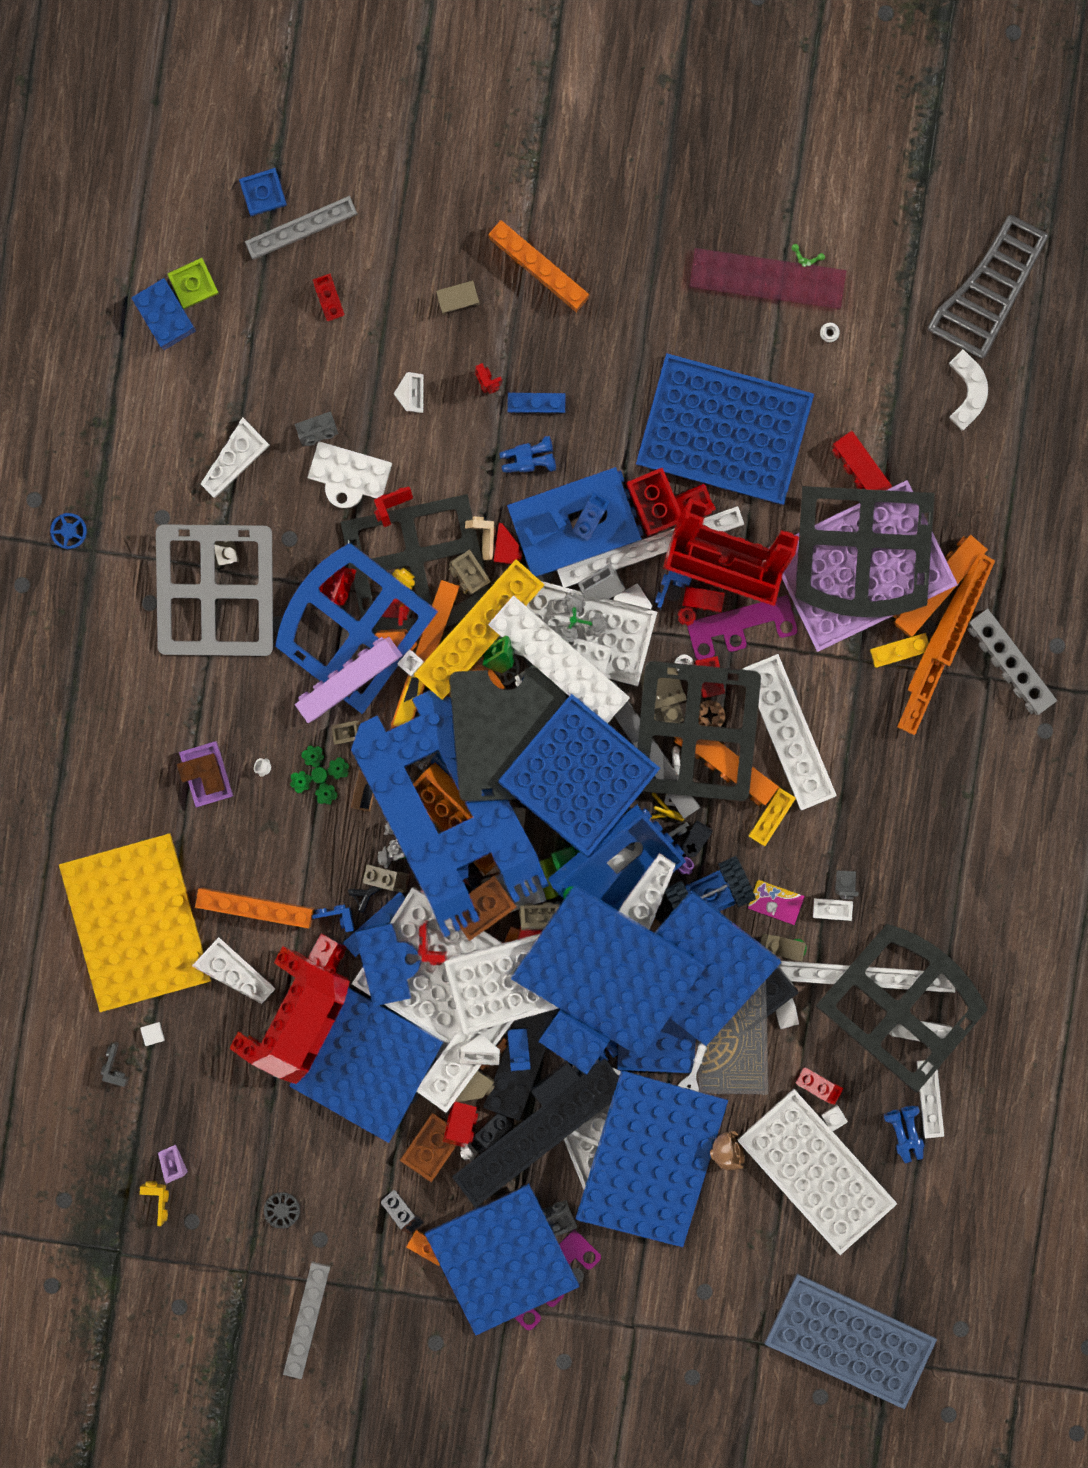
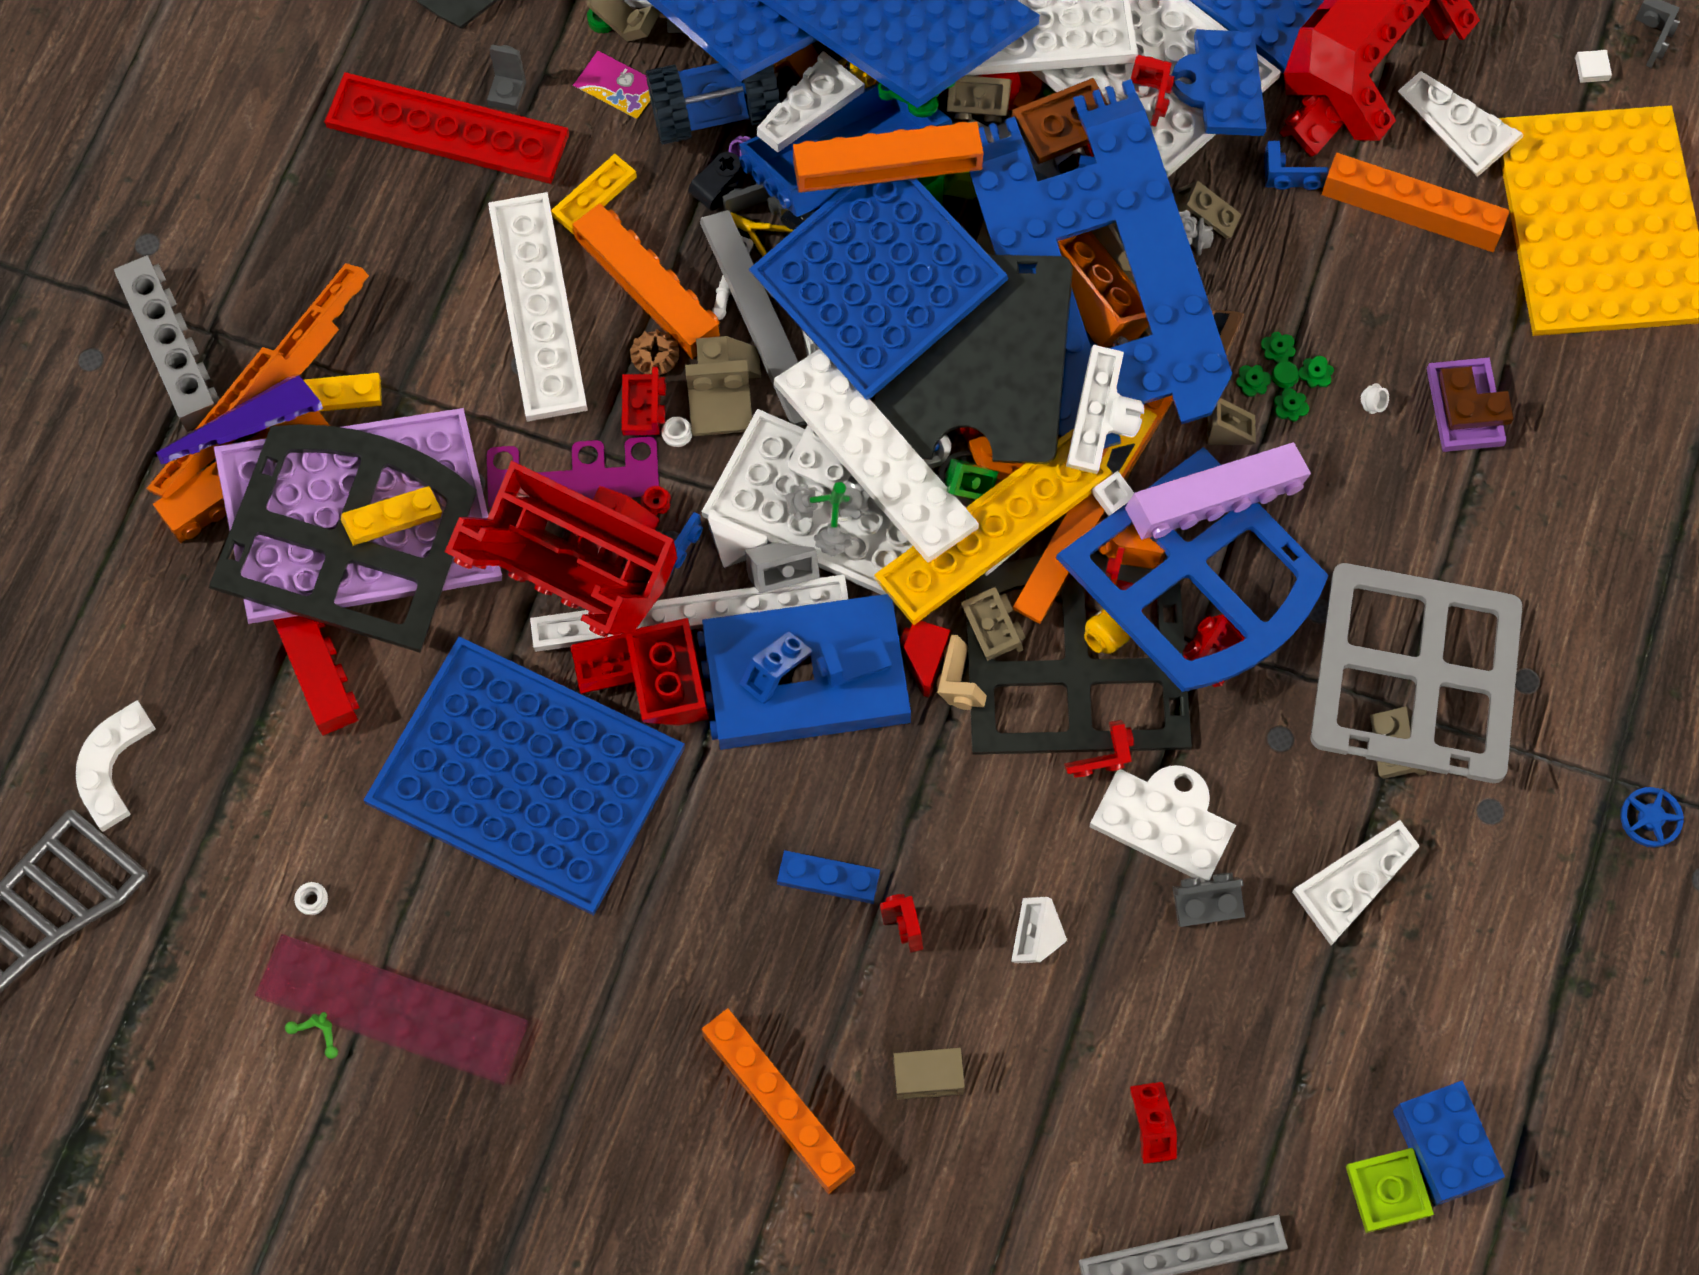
camera: 165 degrees left, 20 degrees down
(366, 894) = (1238, 197): black piece -> none
(382, 917) = (1226, 155): blue plate -> none
(426, 708) = (1101, 411): none -> white plate
(524, 460) = (867, 785): blue piece -> none
(586, 844) = (887, 156): none -> orange brick
(691, 730) = (686, 317): pearl dark grey window -> none
(832, 909) = (539, 55): white plate -> none
(840, 565) = (391, 515): none -> yellow plate
(876, 846) = (447, 127): none -> red plate
(931, 623) = (273, 406): none -> dark purple wedge

